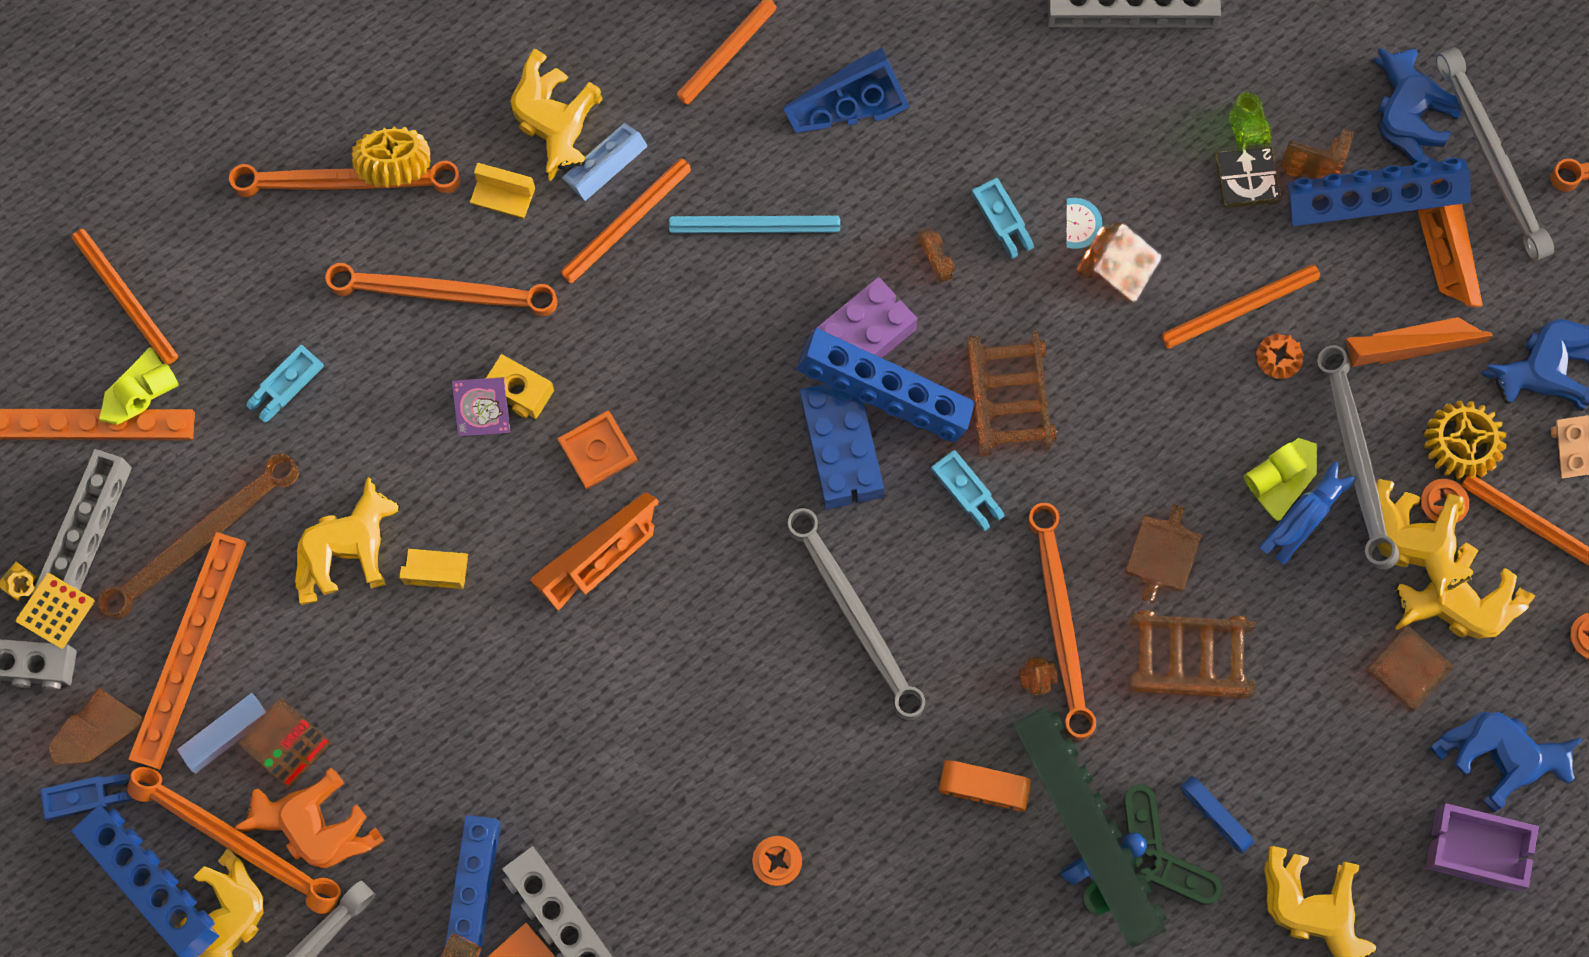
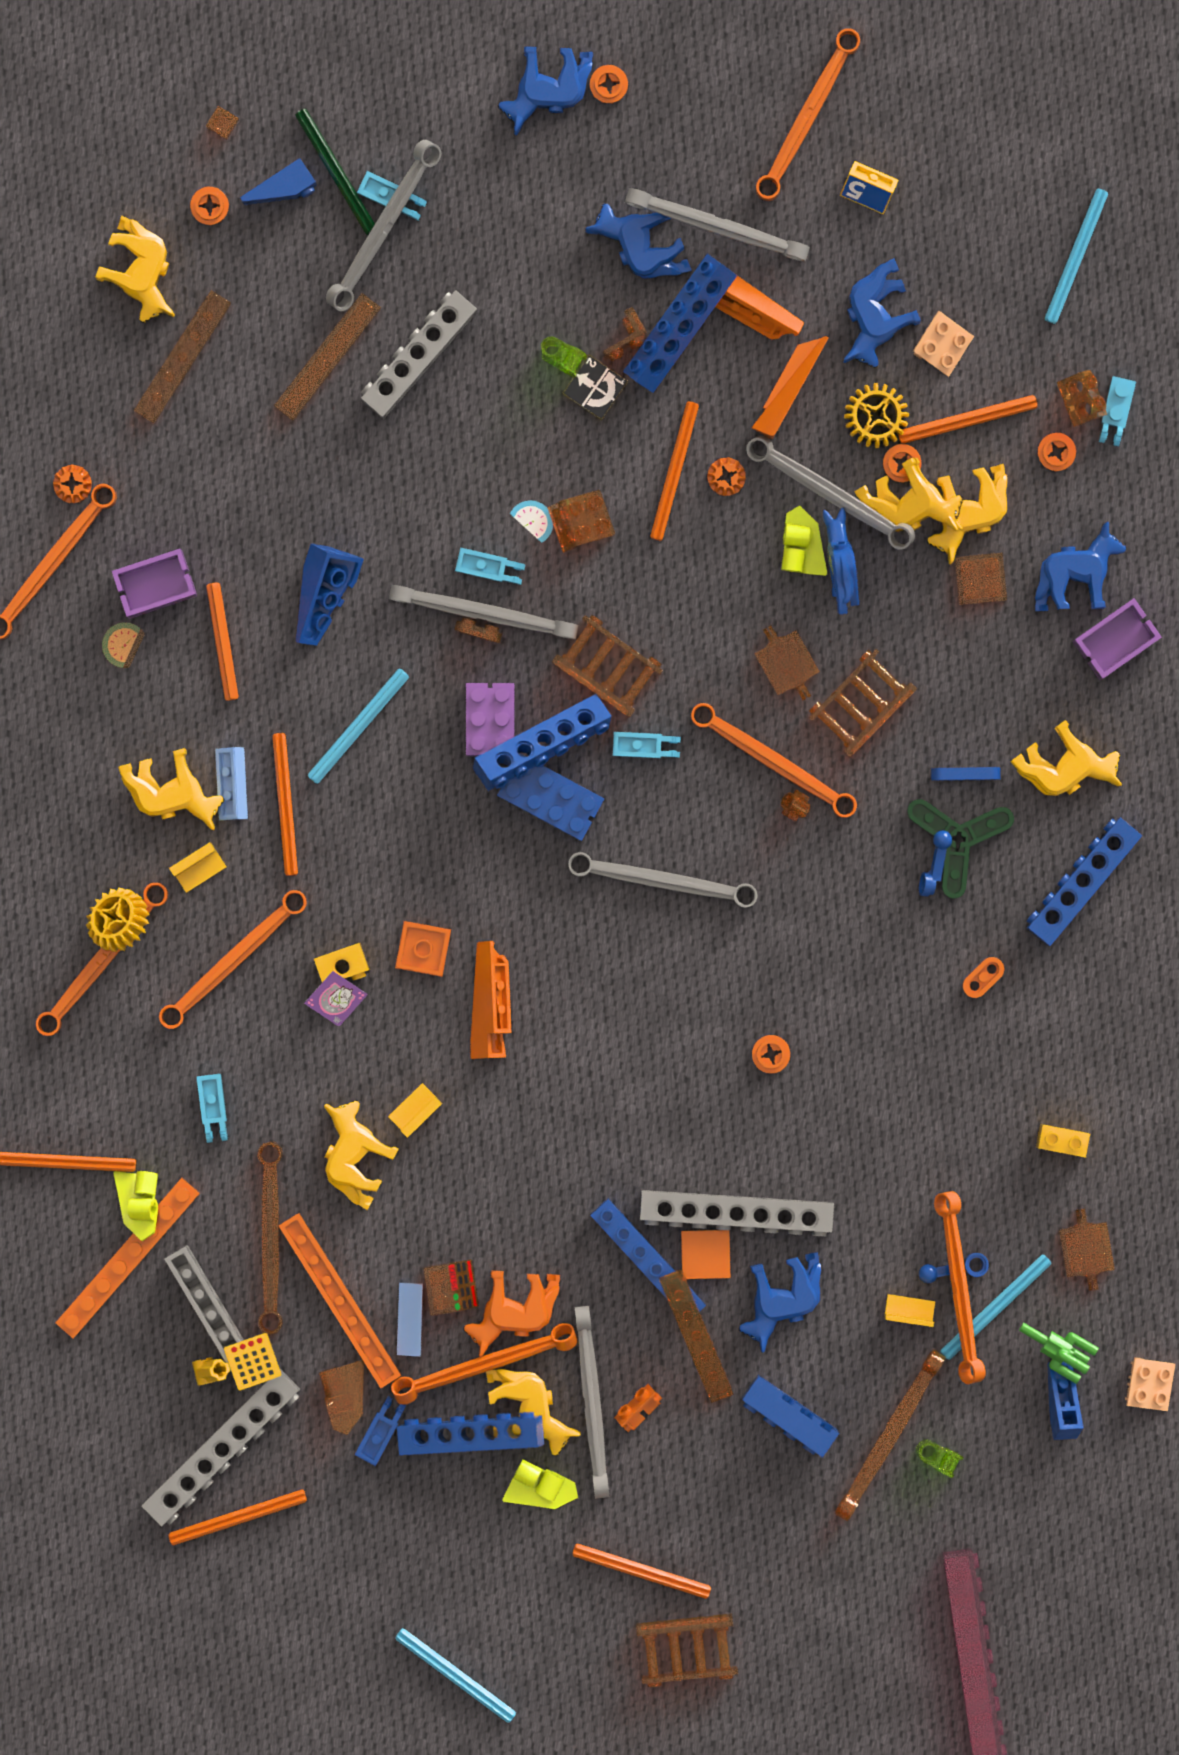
camera: 50 degrees left, 15 degrees up
(986, 784) = (832, 894): orange beam -> none
(1003, 321) = (483, 611): none -> light grey piece
(1089, 827) = (909, 856): clear green brick -> none

